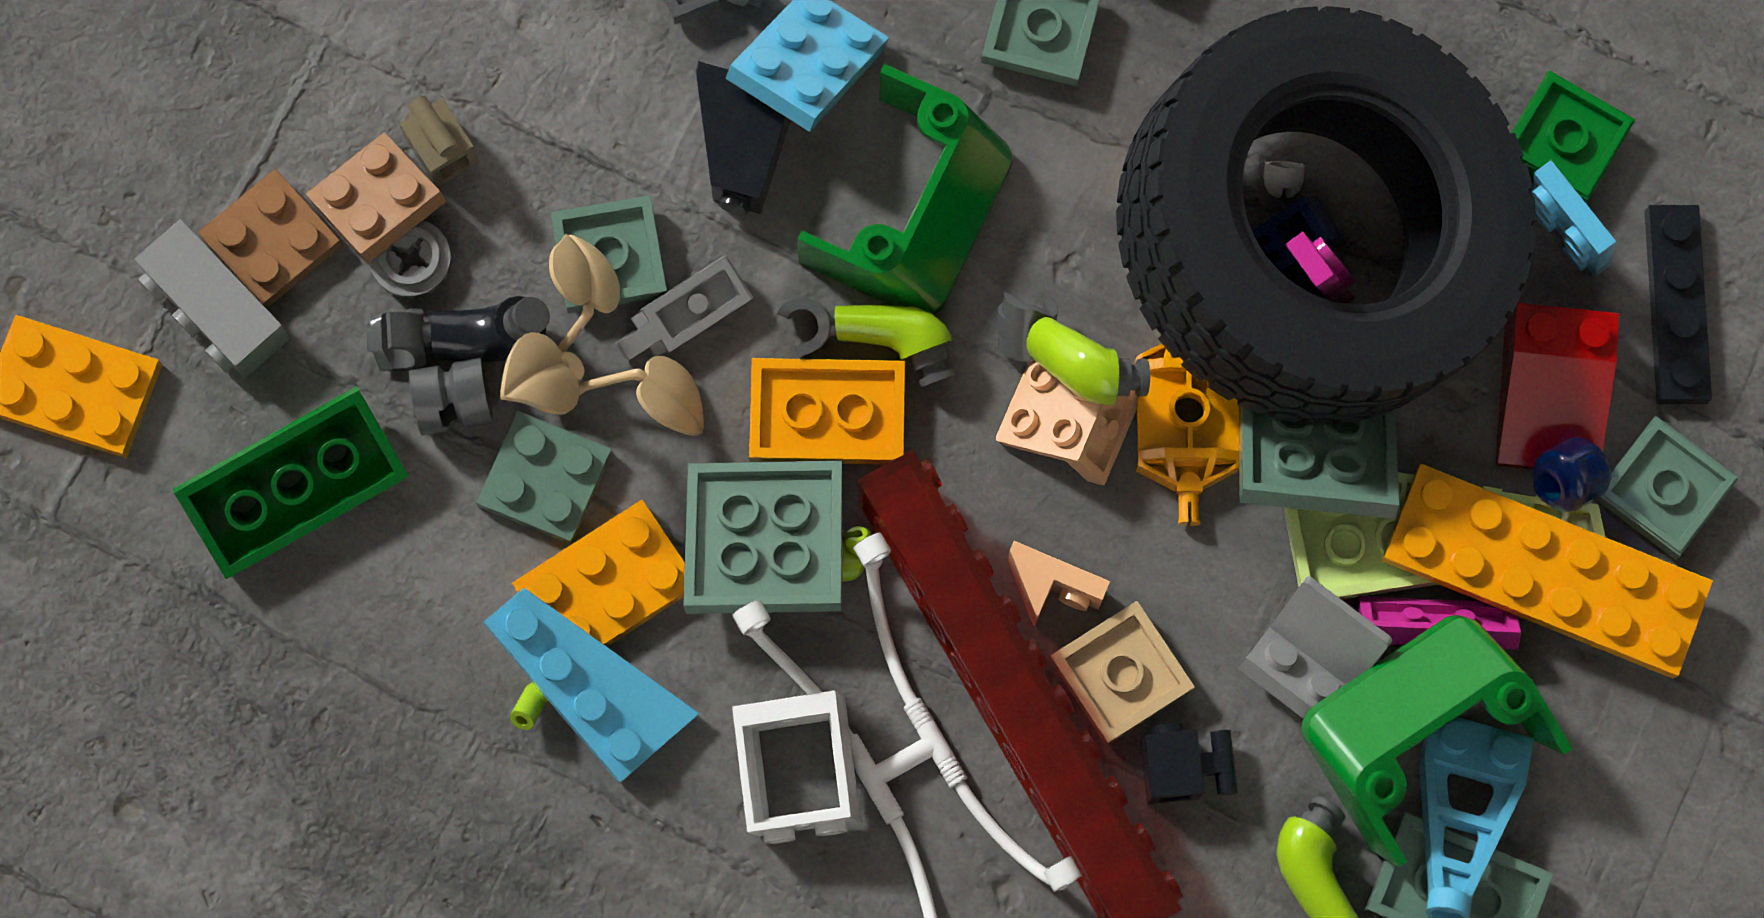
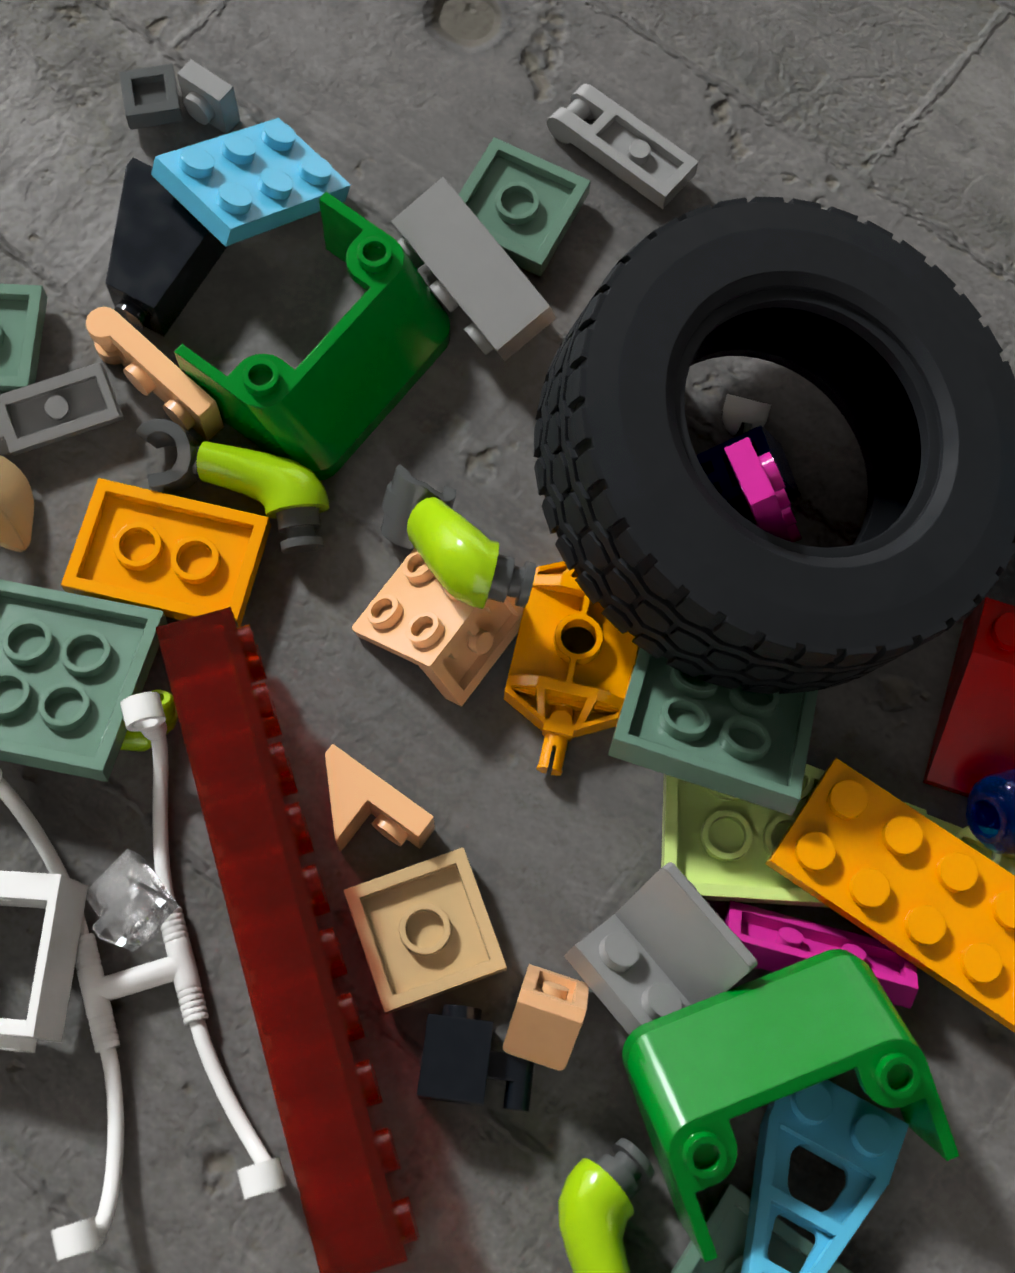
camera: 10 degrees right, 5 degrees down
(768, 252) = (153, 372): none -> light nougat plate
(883, 701) = (129, 902): none -> clear bracket
(1021, 103) = (472, 271): none -> light grey brick
(1237, 718) = (547, 1018): none -> light nougat slope

